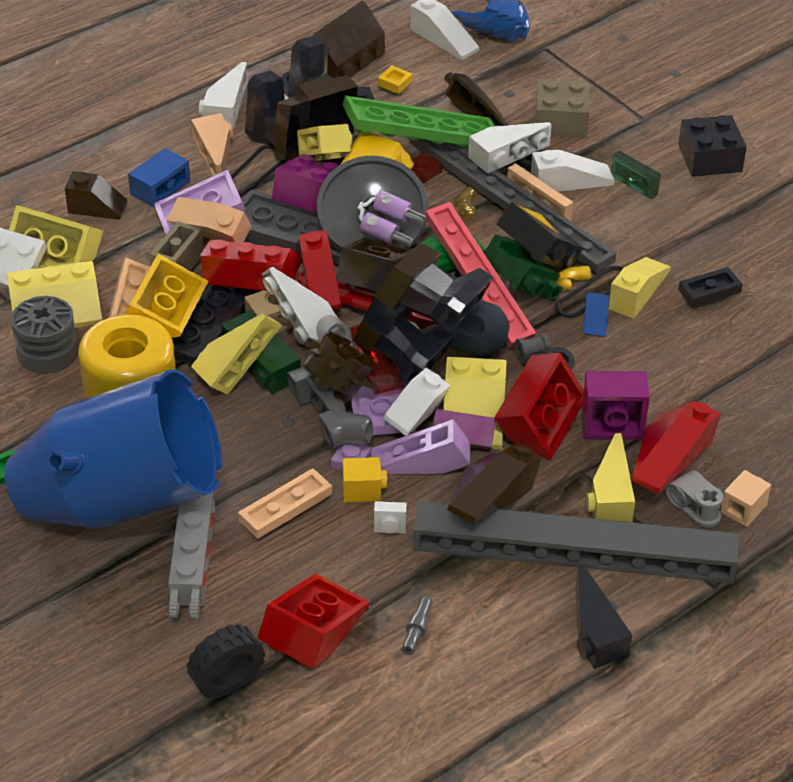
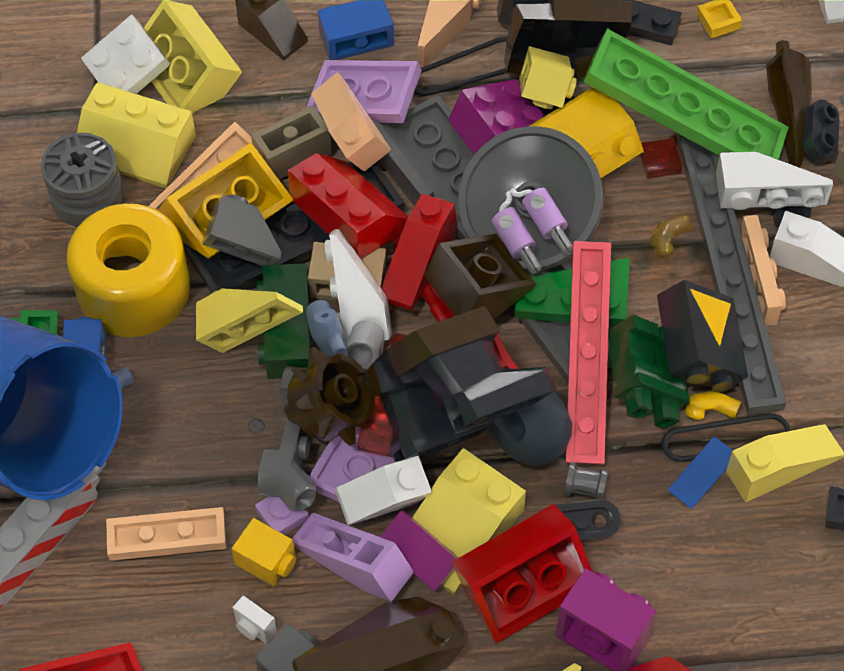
camera: 35 degrees right, 15 degrees up
(196, 306) = (241, 231): none -> dark grey slope
(297, 330) = (325, 328): none -> sand blue piece
(510, 110) = (821, 131): none -> black plate

